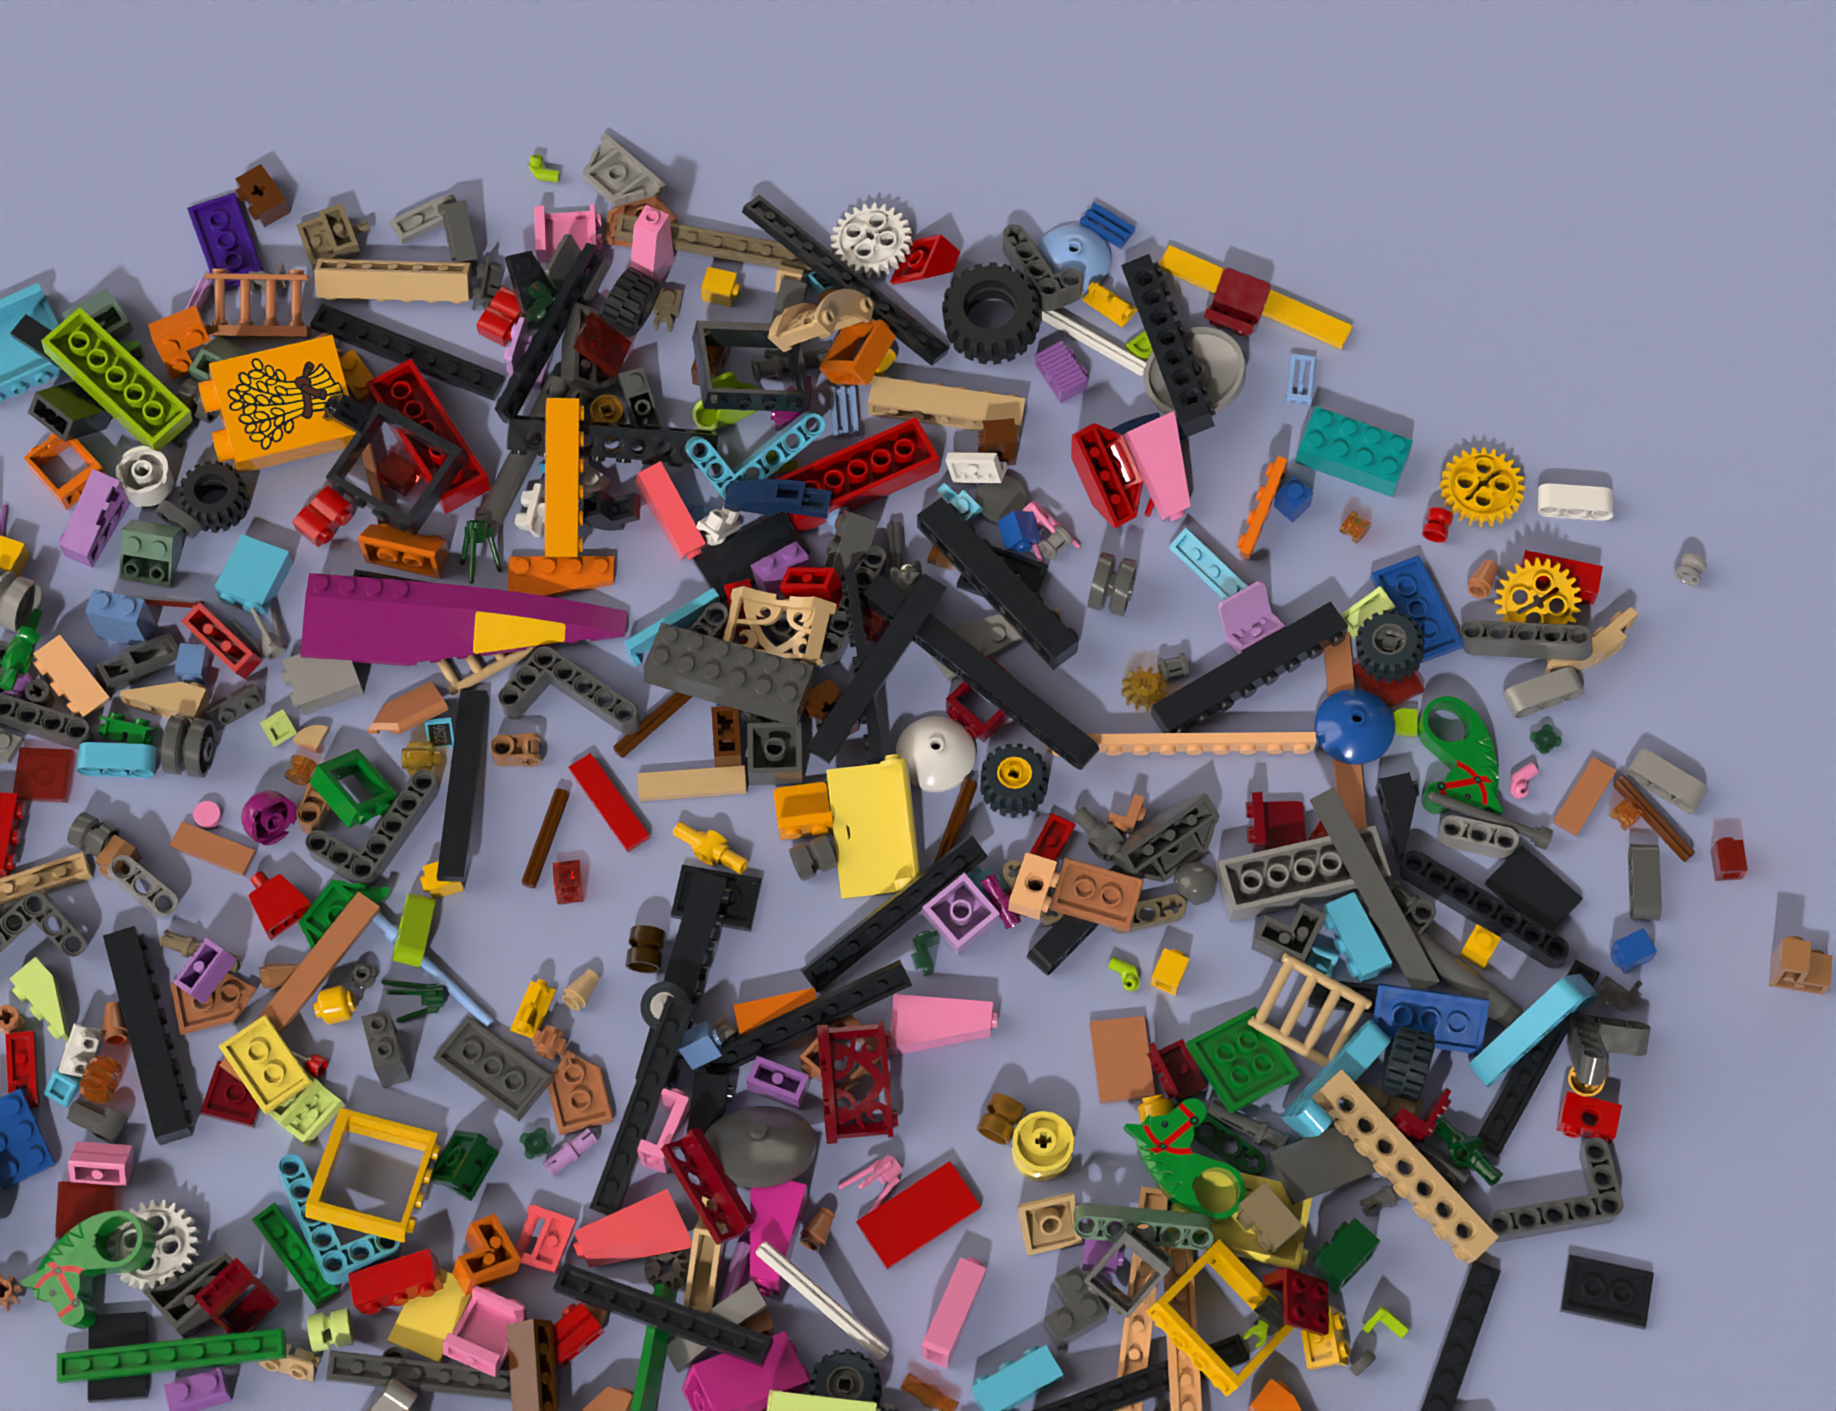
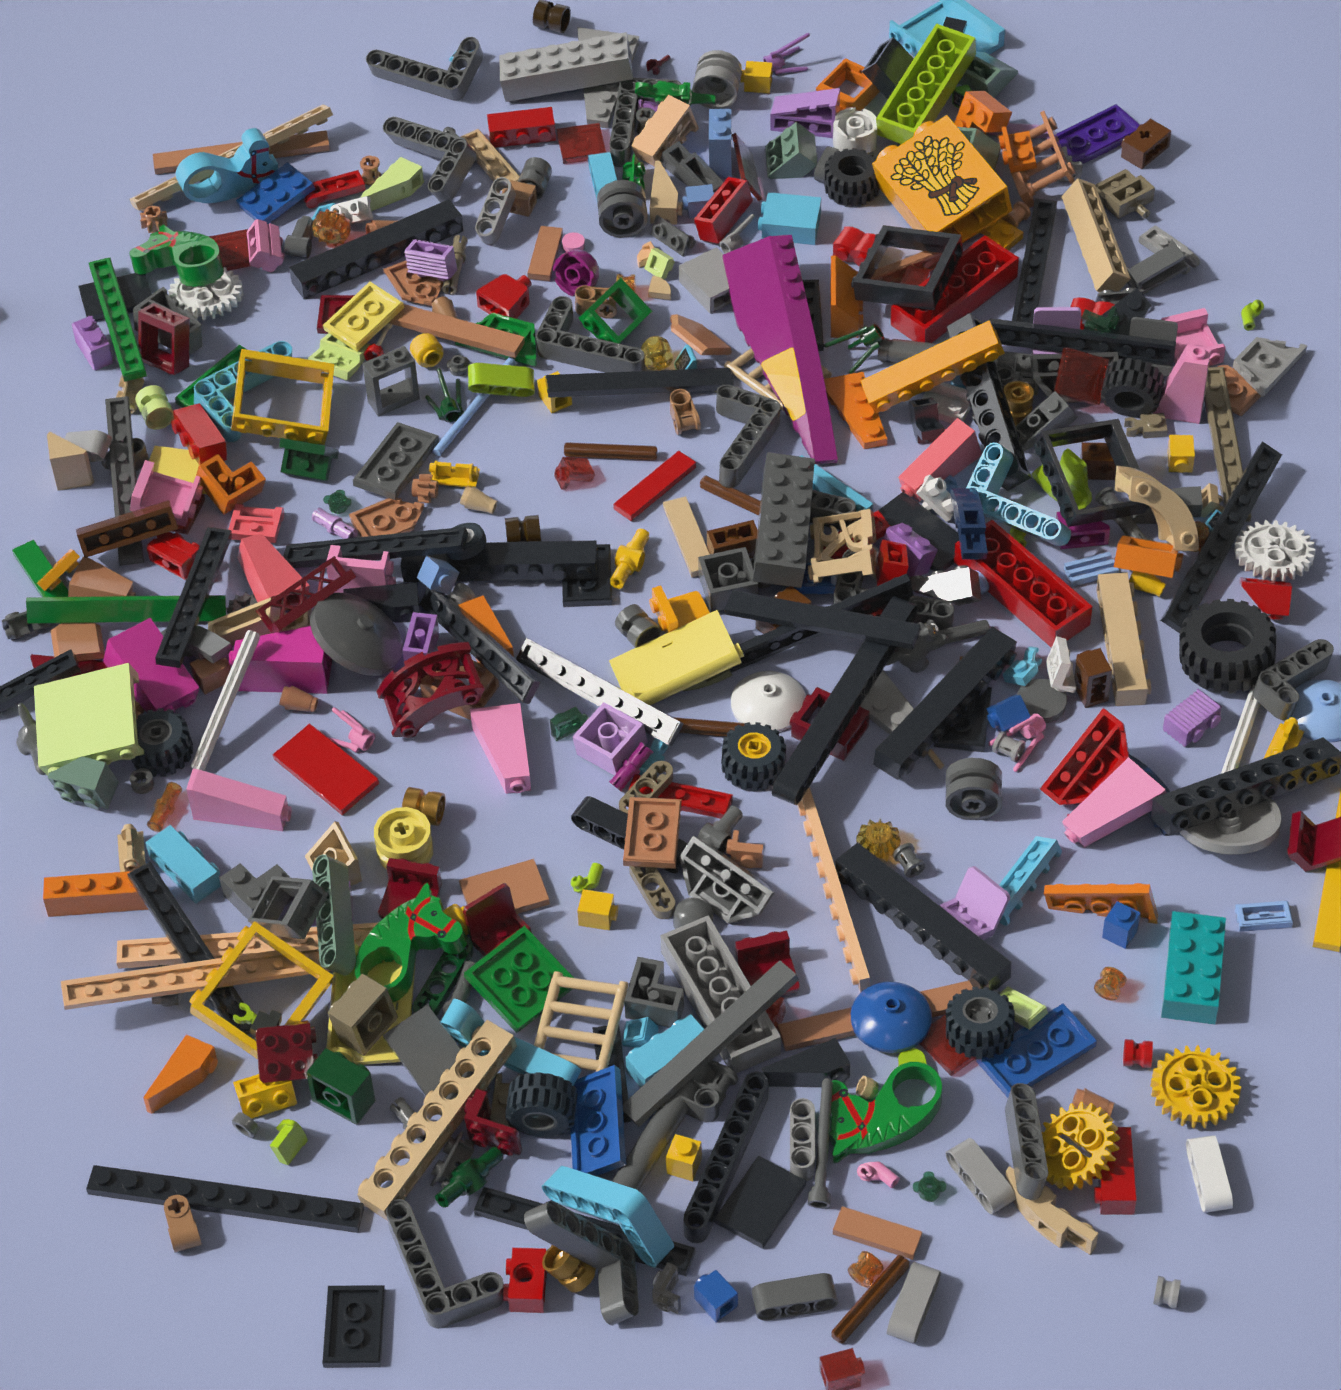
camera: 80 degrees right, 15 degrees down
(246, 317) = (1018, 151): none -> orange bracket
(252, 739) = (643, 255): none -> light nougat tile
(345, 412) = (940, 215): black bracket -> none
(1033, 870) = (644, 777): light nougat brick -> none
(1107, 1153) = (406, 882): none -> dark red bracket
(1425, 774) = (867, 1088): none -> tan hinge

